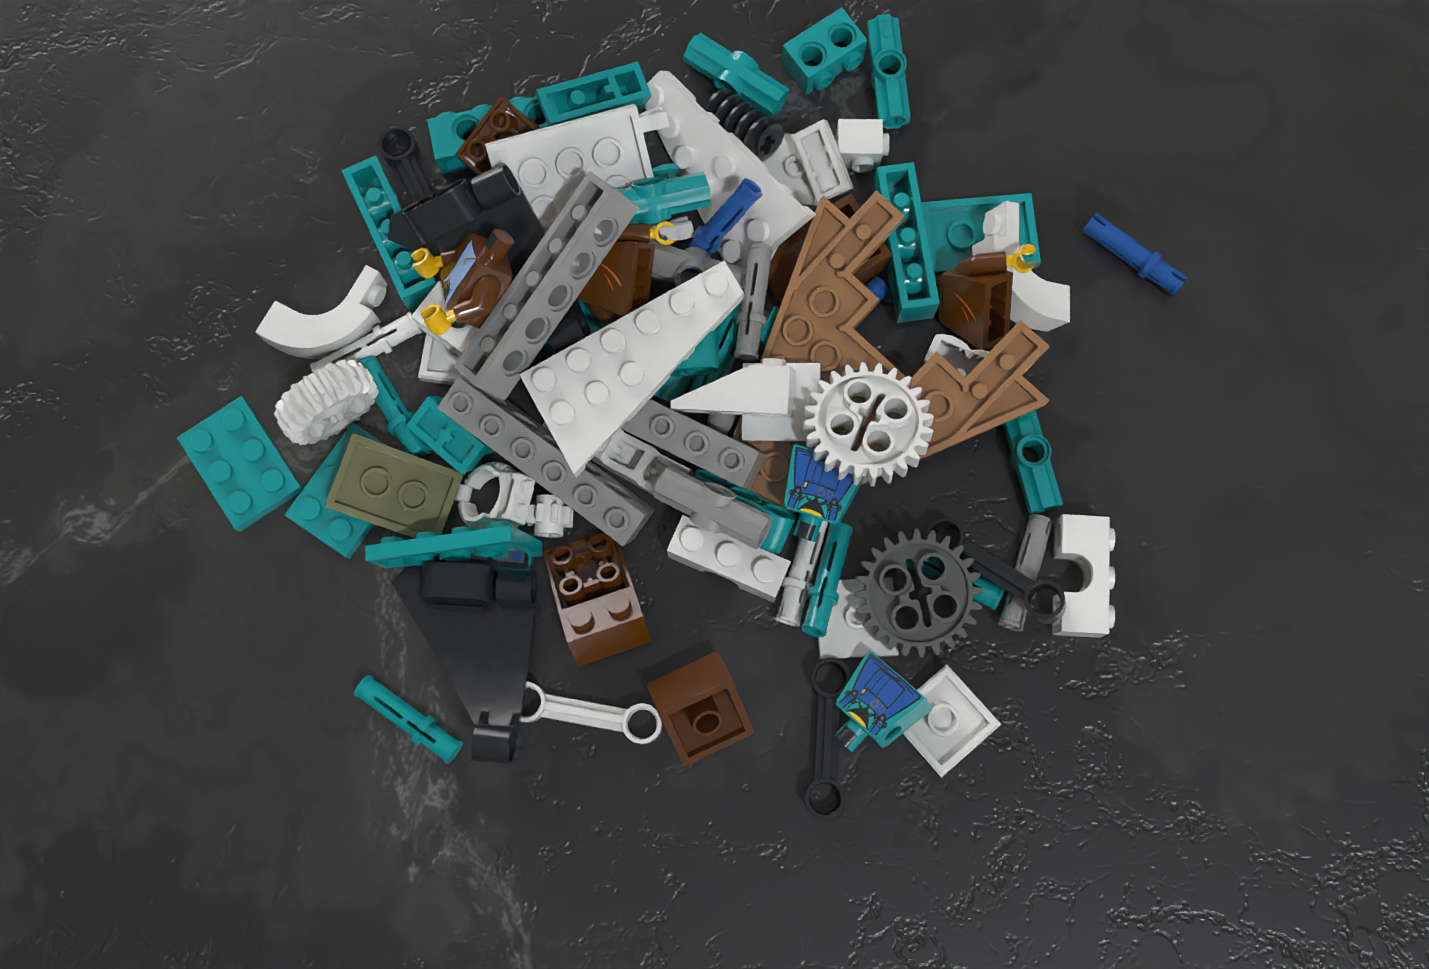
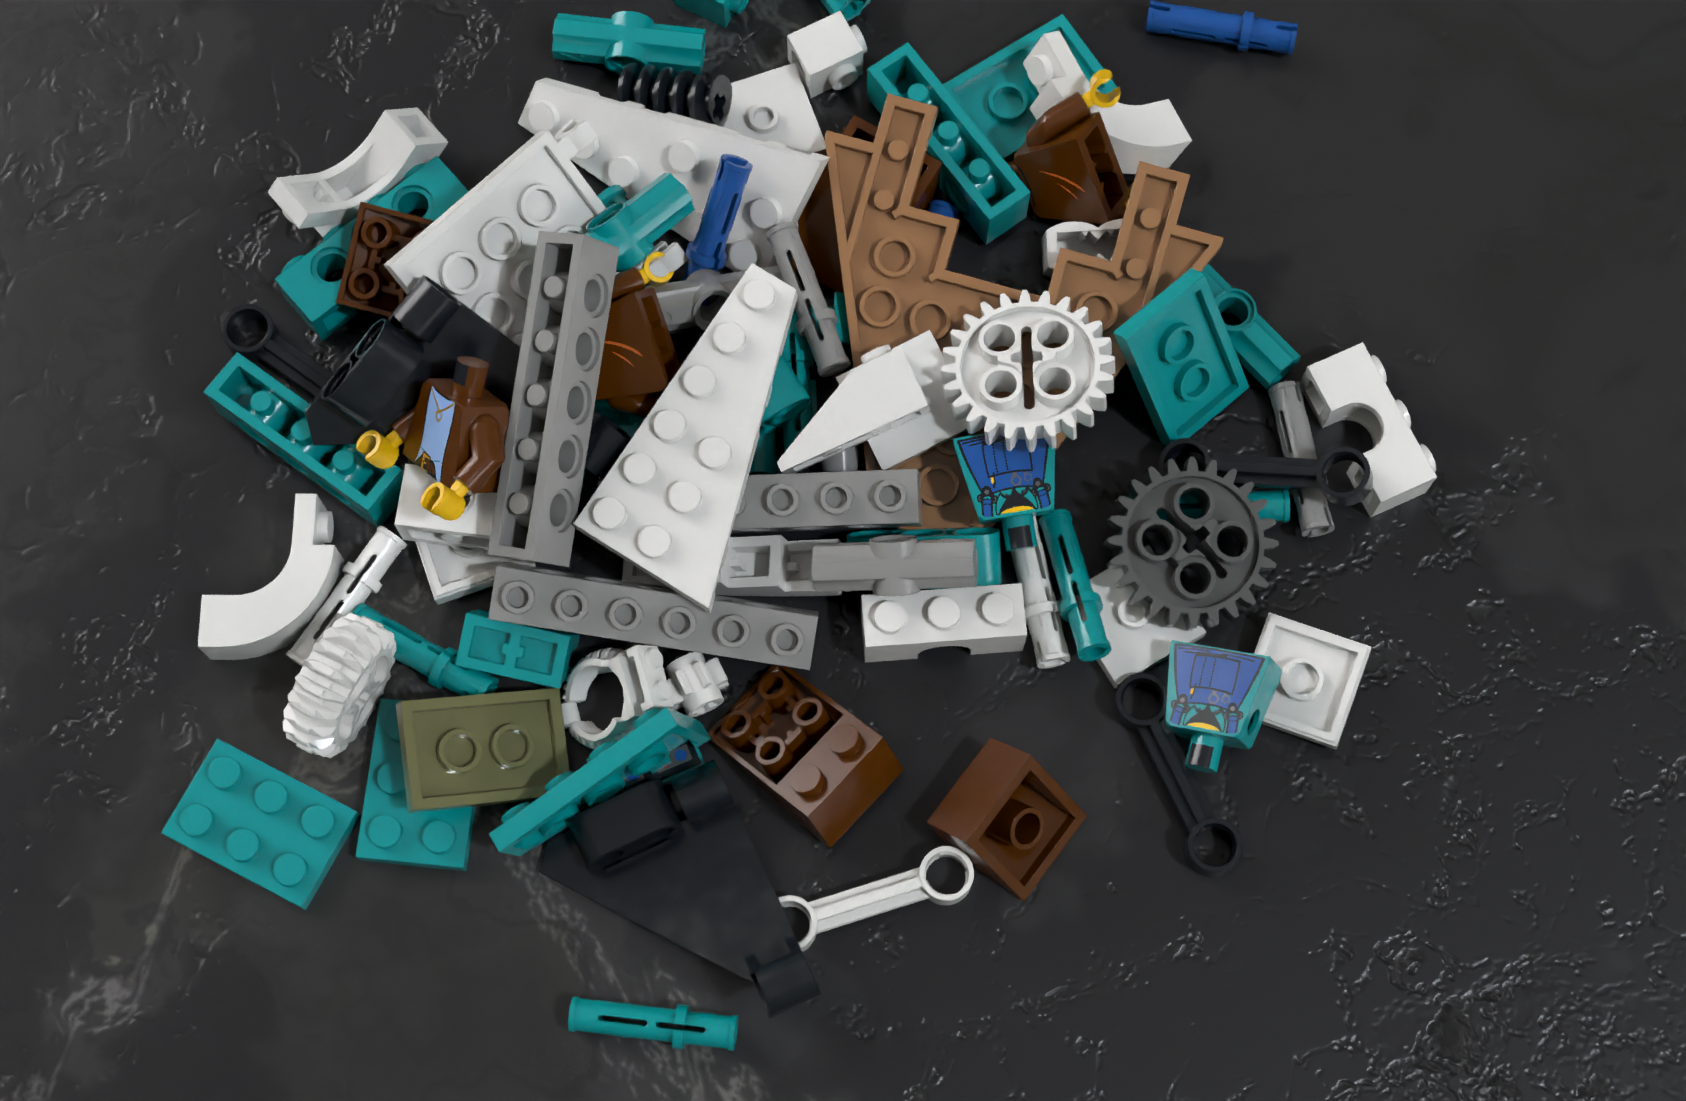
camera: 30 degrees left, 5 degrees down
(488, 81) = (377, 166): none -> white arch
(594, 94) = (475, 147): teal slope -> none
(822, 161) = (796, 95): white plate -> none
(979, 466) = (1182, 358): none -> teal plate

